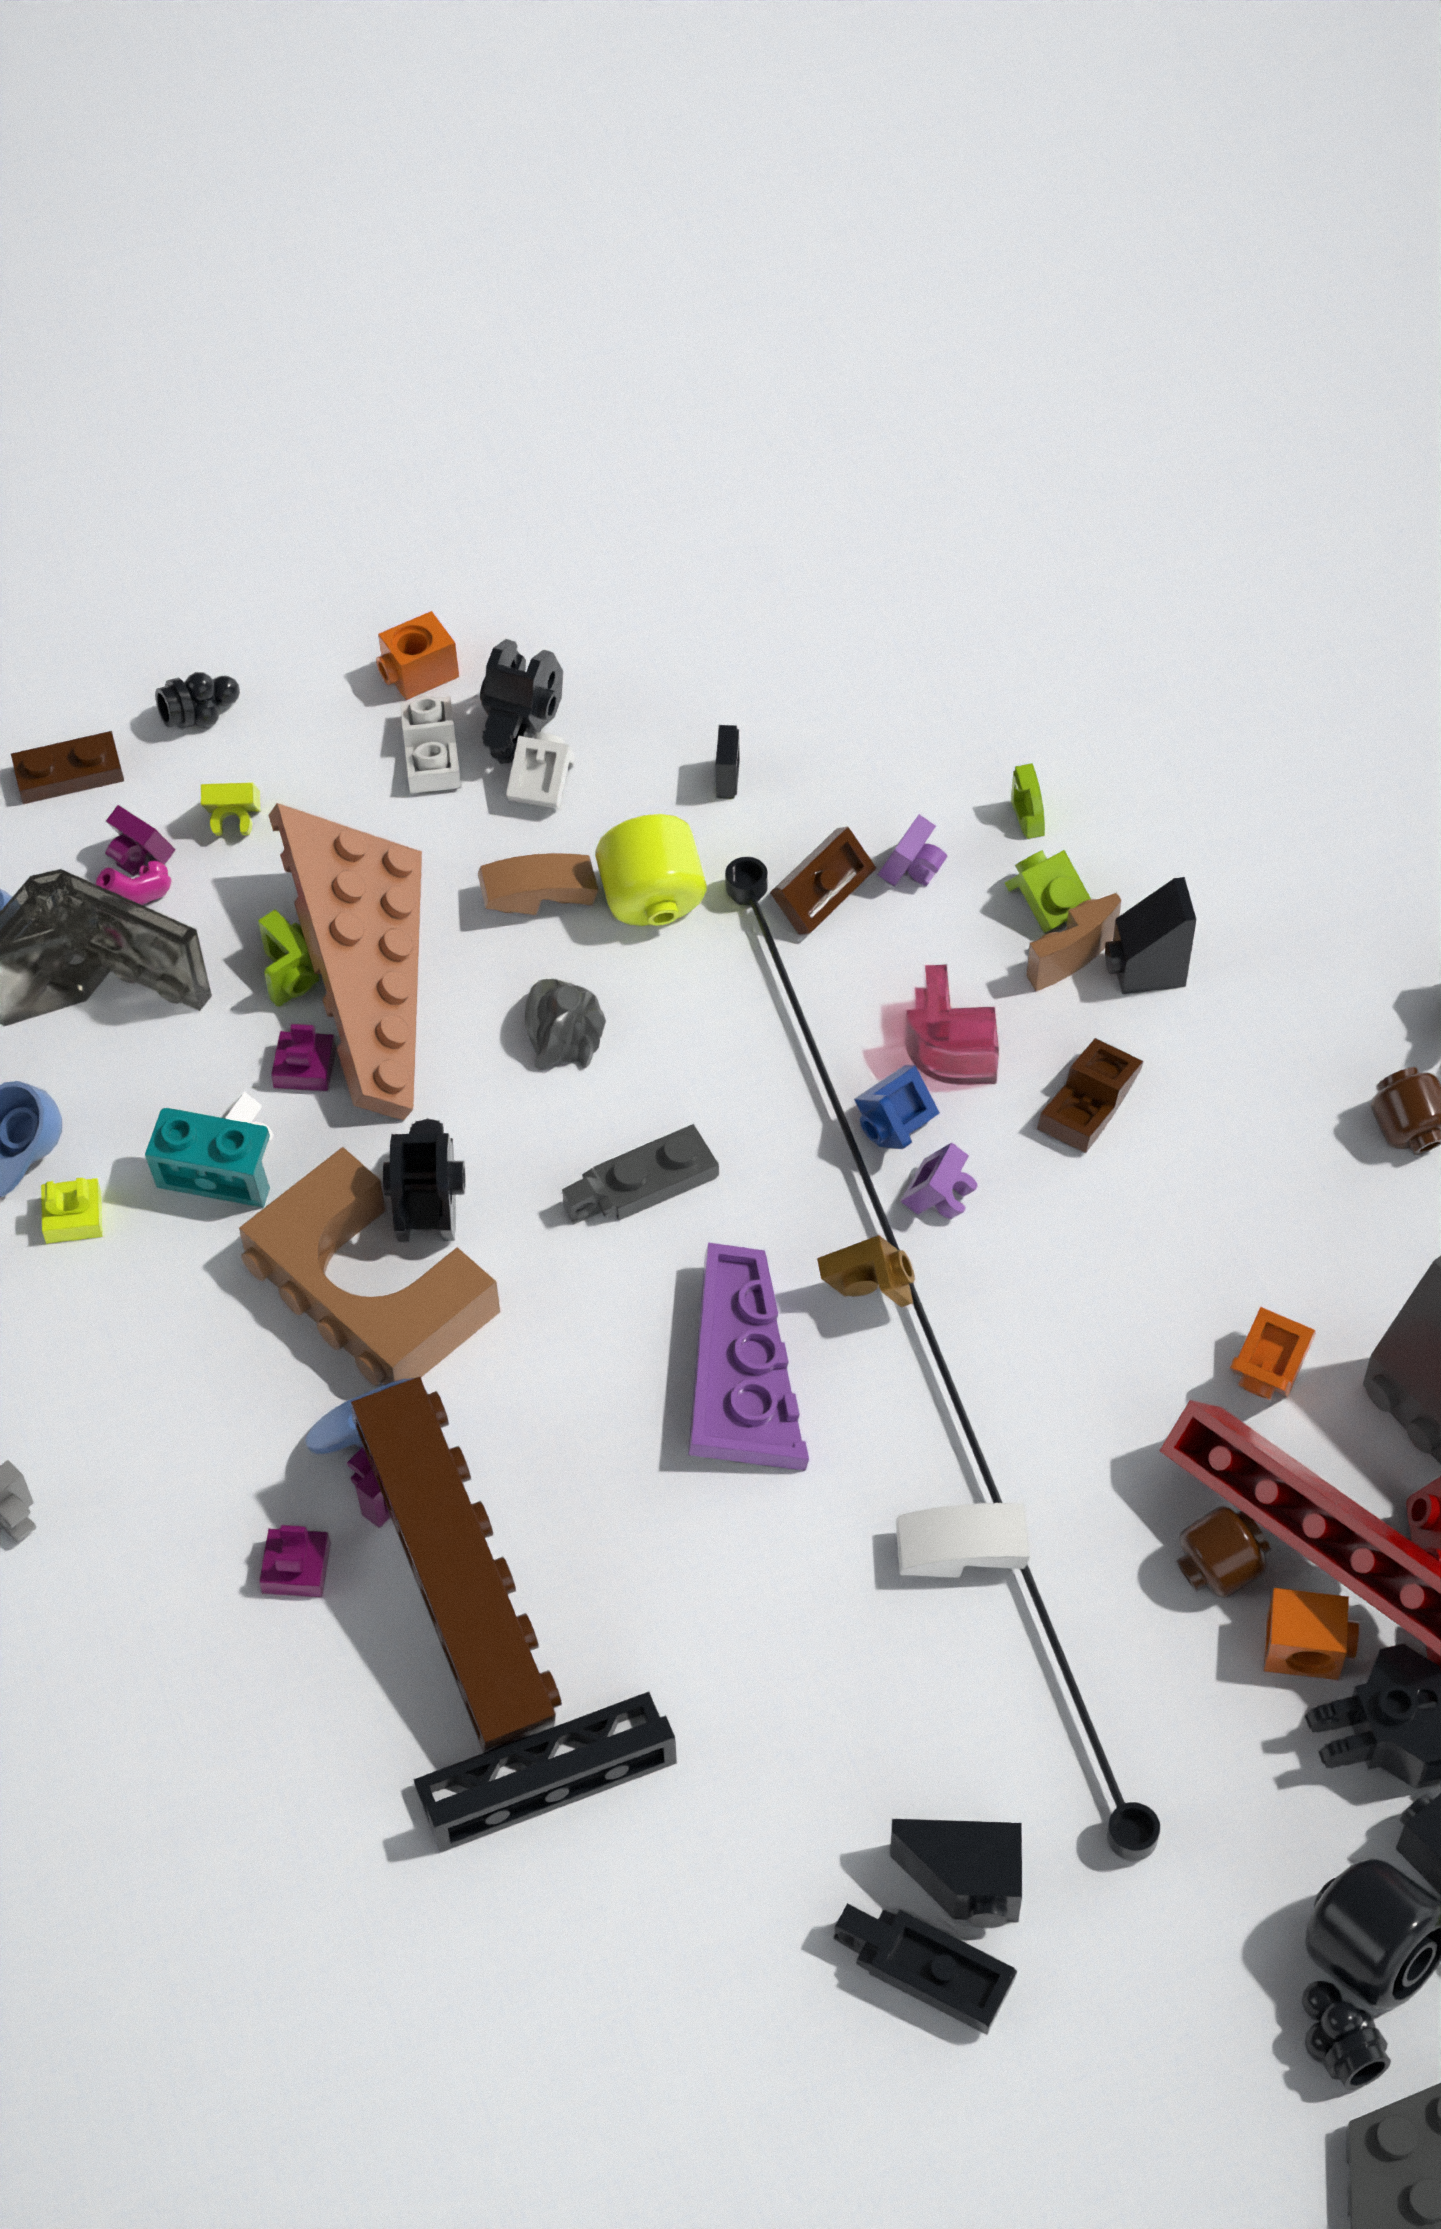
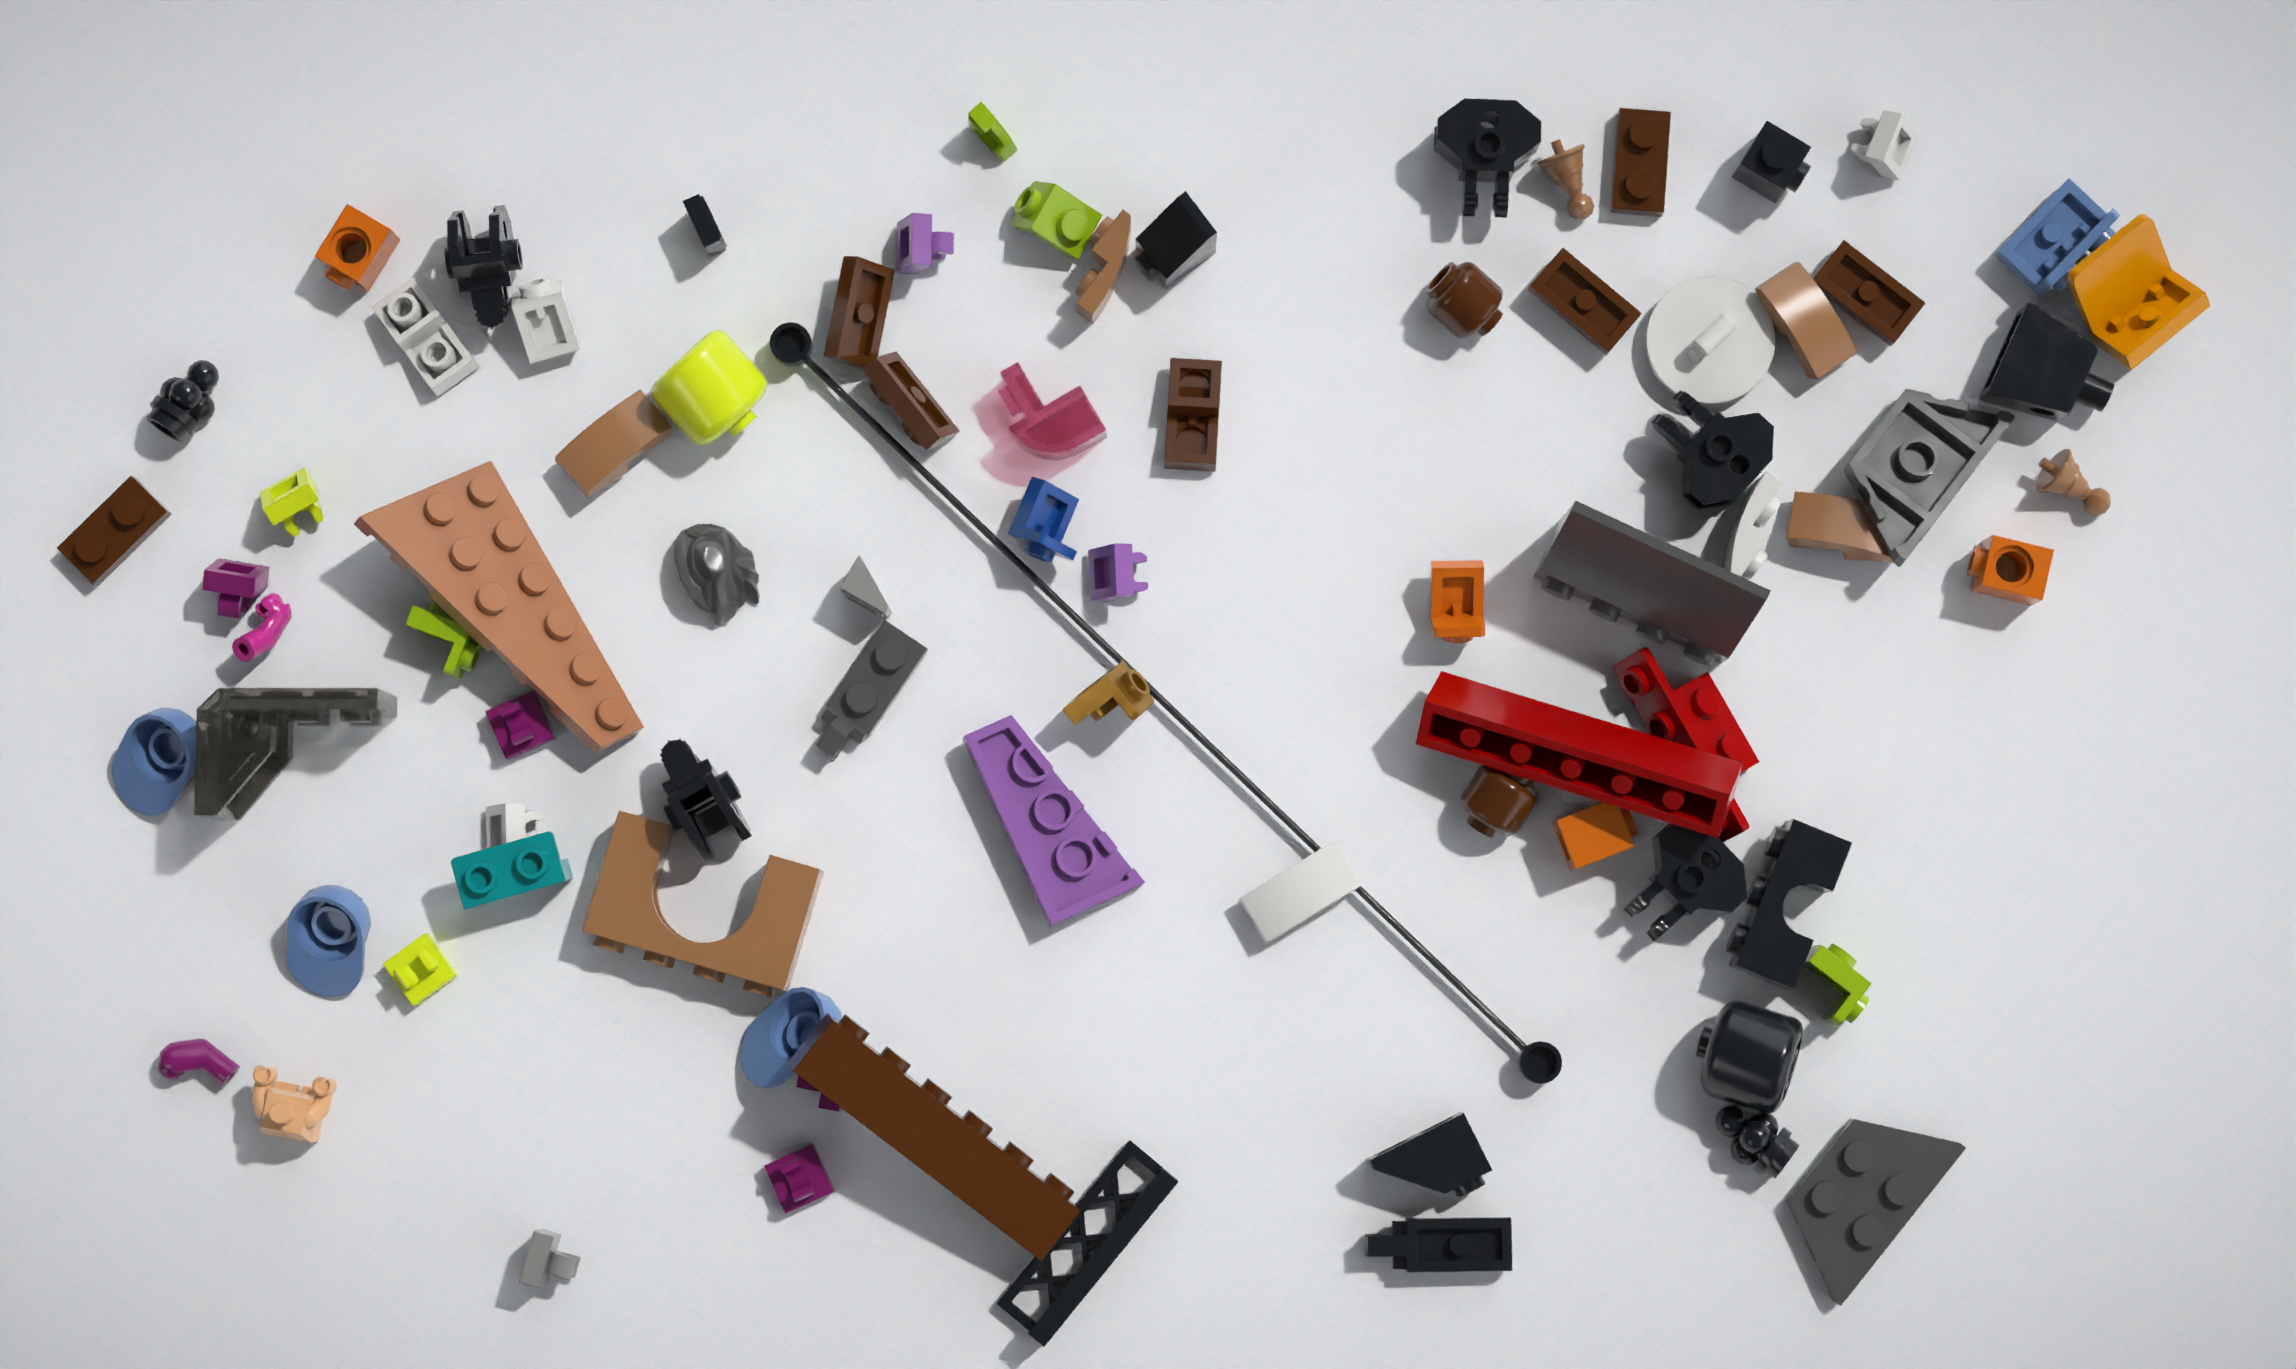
camera: 30 degrees left, 30 degrees up
(686, 1088) = (863, 590): none -> light grey slope
(825, 954) = (902, 390): none -> reddish brown plate

